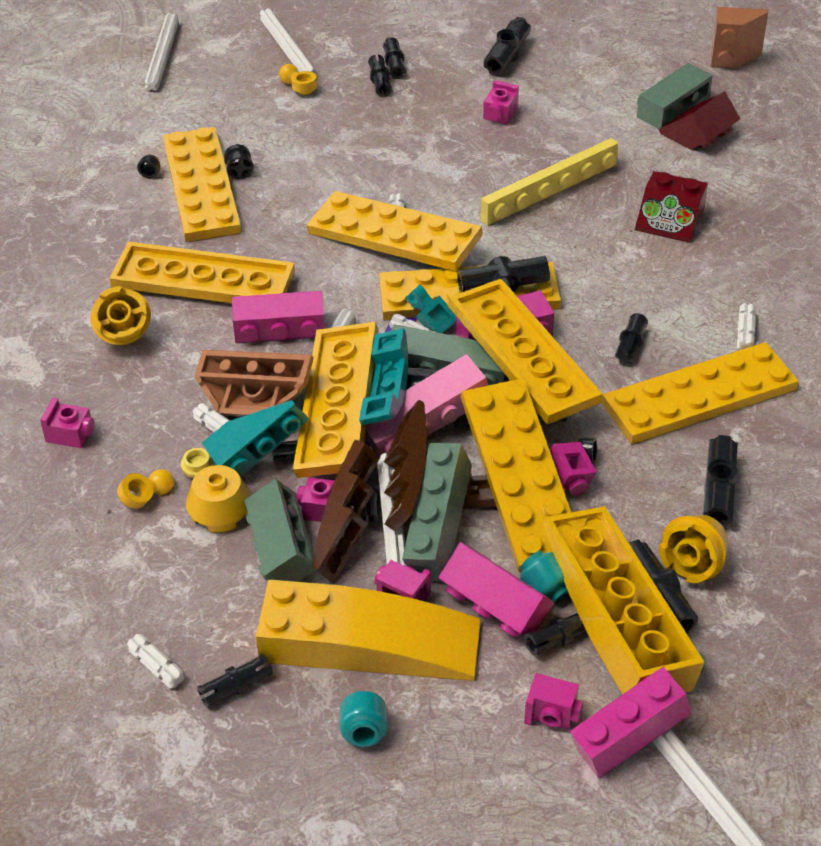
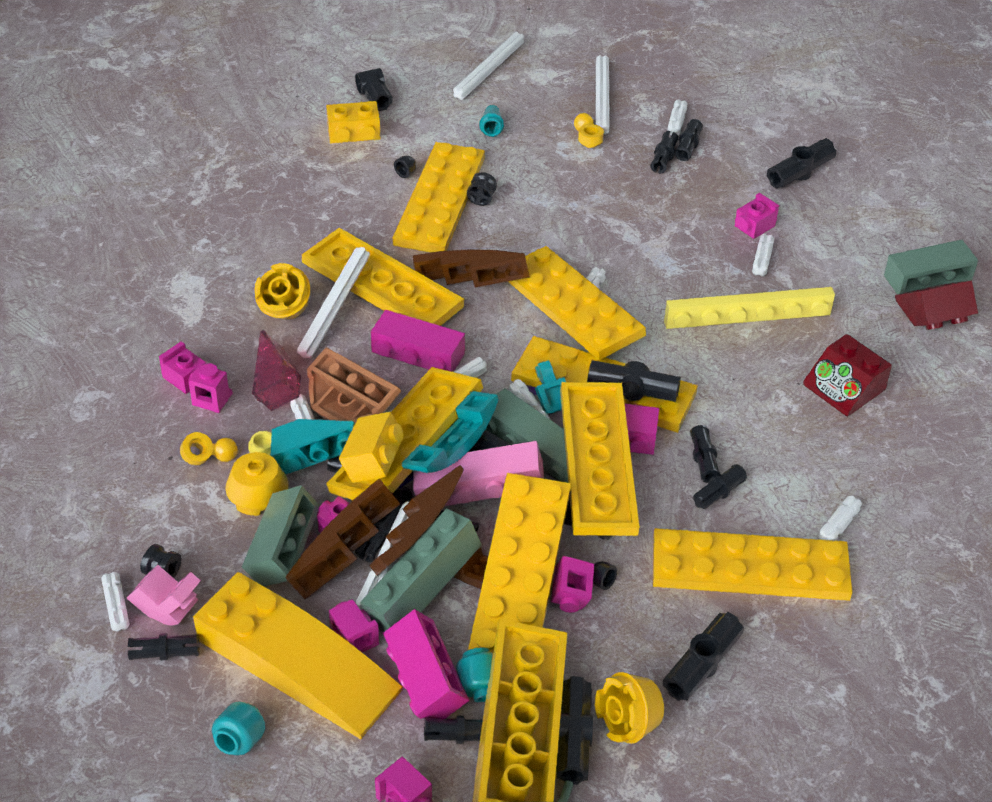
camera: 25 degrees right, 0 degrees up
(64, 103) = (373, 86): none -> black piece
(69, 142) = (353, 122): none -> yellow brick
(108, 422) = (209, 379): none -> dark pink brick
(169, 397) = (275, 374): none -> clear pink slope
(174, 311) = (333, 303): none -> white axle
(178, 607) = (156, 556): none -> black wheel
(203, 99) = (491, 121): none -> teal cone
(206, 636) = (164, 597): none -> bright pink brick
(291, 227) = (481, 266): none -> reddish brown slope
(325, 416) = (371, 447): none -> yellow brick
(369, 41) = (677, 117): none -> white axle
(528, 134) = (763, 255): none -> white axle
(588, 306) = (704, 453): none -> black pin

